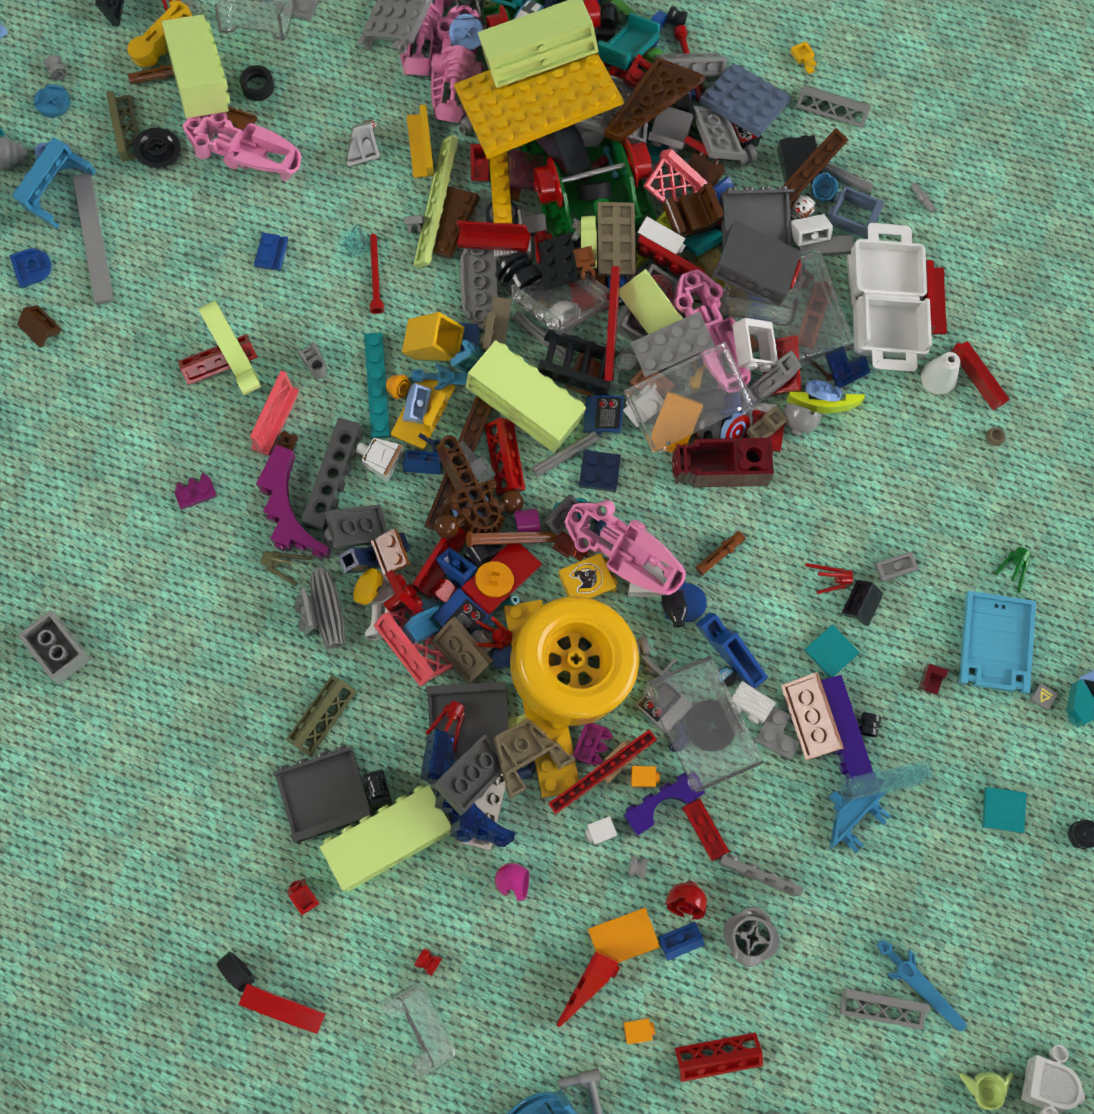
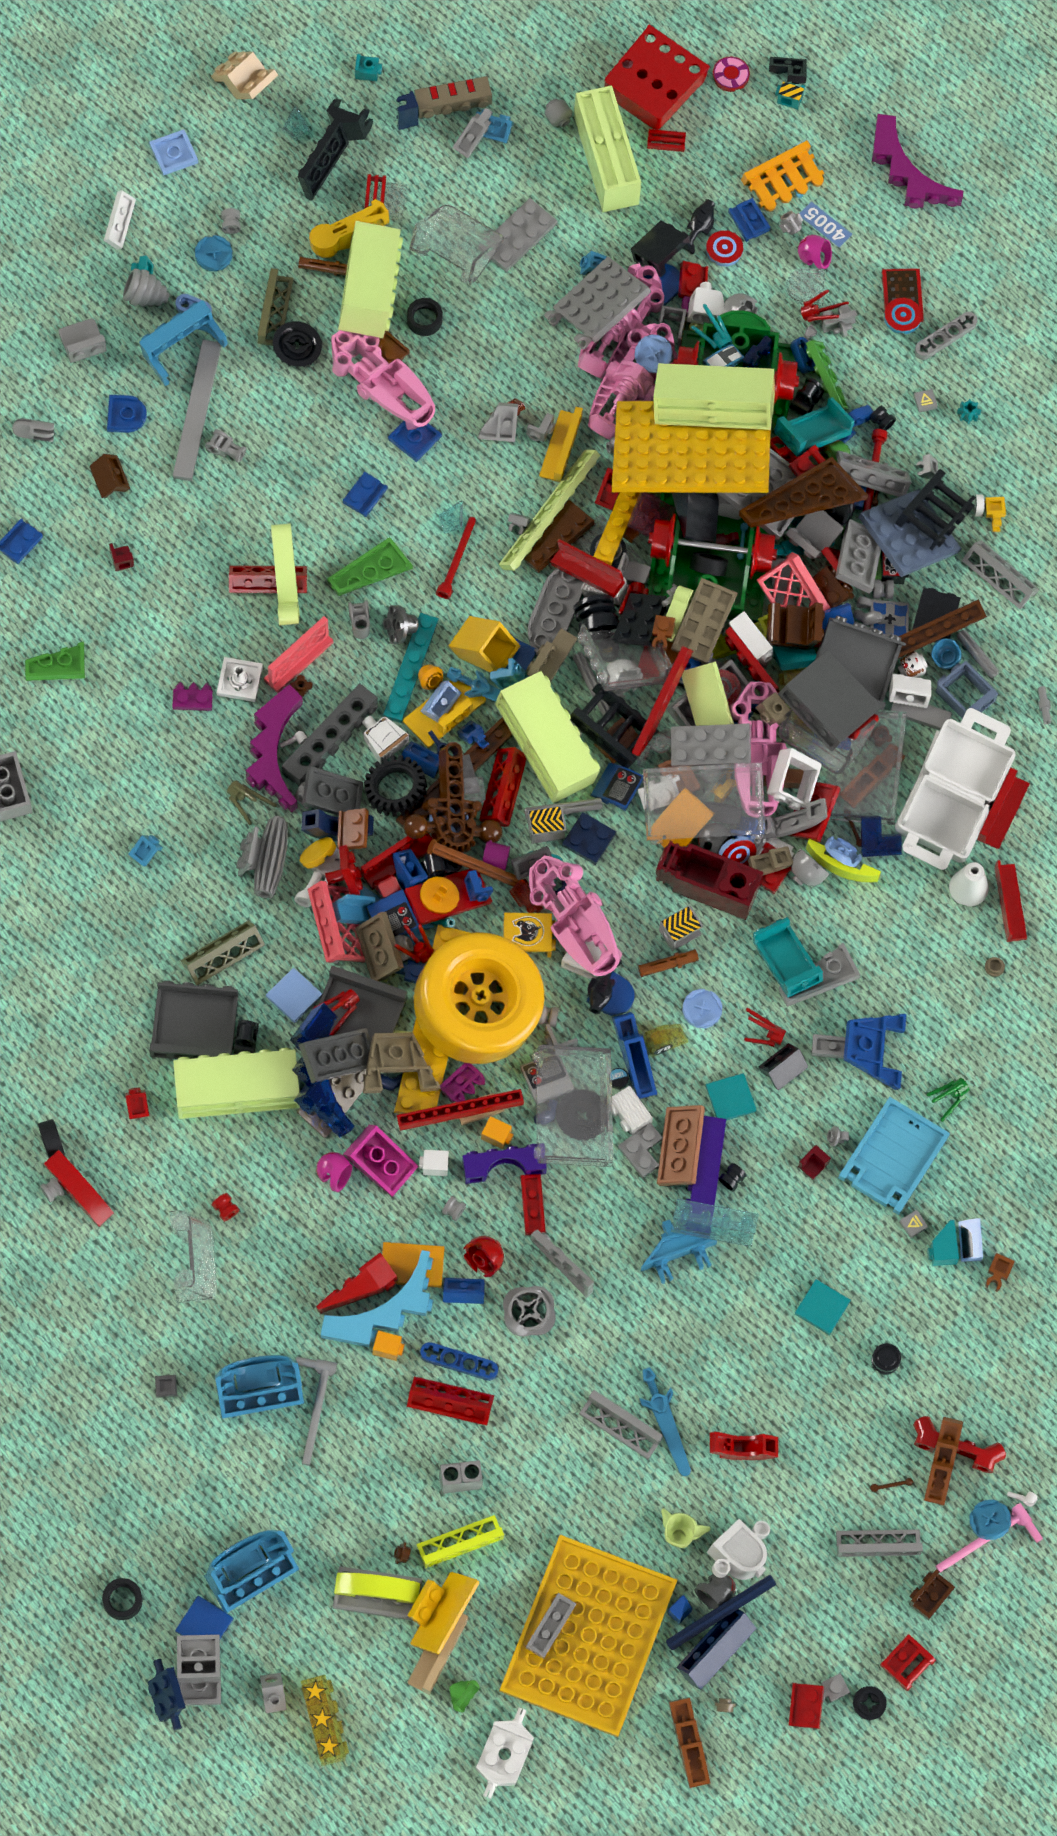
camera: 20 degrees right, 5 degrees down
(62, 512) = (65, 664): none -> bright green wing
(78, 393) = (121, 557): none -> dark red panel
(129, 259) = (223, 445): none -> light grey connector
(209, 649) = (145, 849): none -> dark azure bracket
(228, 451) = (241, 672): none -> white plate
(256, 1021) = (52, 1189): none -> light grey wheel
(294, 190) = (414, 442): none -> blue tile
(305, 310) = (373, 566): none -> bright green wing
(305, 487) = (299, 736): none -> white hand
(350, 351) = (399, 624): none -> flat silver plate
(398, 141) = (540, 434): none -> light grey bracket
(400, 479) = (397, 805): none -> black tyre
(403, 727) = (294, 995): none -> light blue tile
(456, 420) = (473, 732): none -> blue plate
(522, 559) = (474, 887): none -> blue bracket
(550, 850) = (380, 1159): none -> dark pink slope
(558, 474) = (546, 824): none -> piece
(640, 976) = (410, 1299): none -> medium azure arch
(709, 1017) = (460, 1357): none -> blue beam
(712, 290) = (773, 709): none -> dark tan brick
(717, 517) = (680, 928): none -> piece
(734, 42) = (930, 466): none -> light grey tile
(743, 72) = (927, 494): none -> black fence
(749, 181) = (867, 618): none -> light grey arm
(750, 623) = (664, 1038): none -> clear yellow slope
(757, 175) = (894, 614): none -> flag
(768, 581) = (702, 1008): none -> light blue tile
(788, 55) = (979, 505): none -> white tile
(821, 504) = (786, 957): none -> teal panel
(856, 508) = (837, 970): none -> light grey wing
(927, 554) = (866, 1046): none -> blue wing
(939, 646) = (836, 1136): none -> light grey plate
(1005, 978) = (744, 1447): none -> red arch

